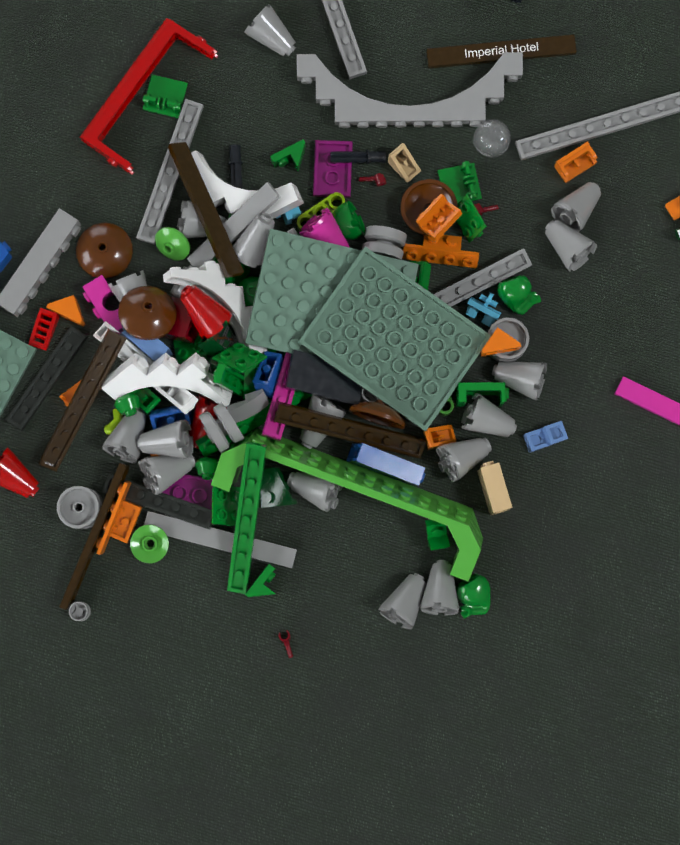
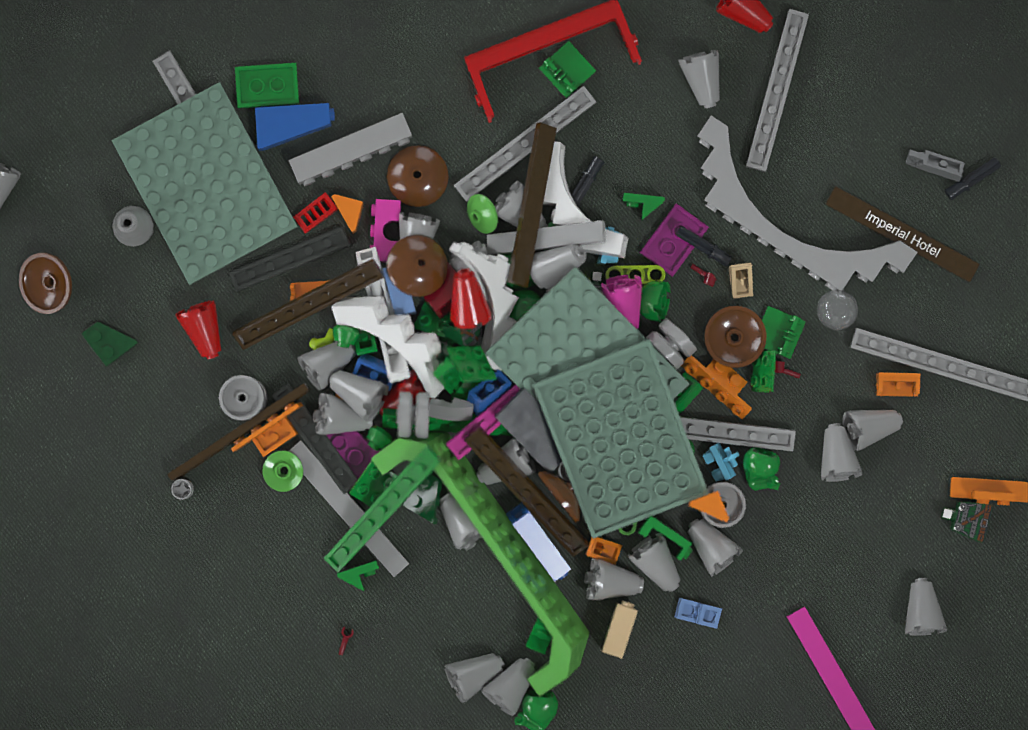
camera: 30 degrees right, 5 degrees up
(438, 217) = (736, 353): orange bracket -> none

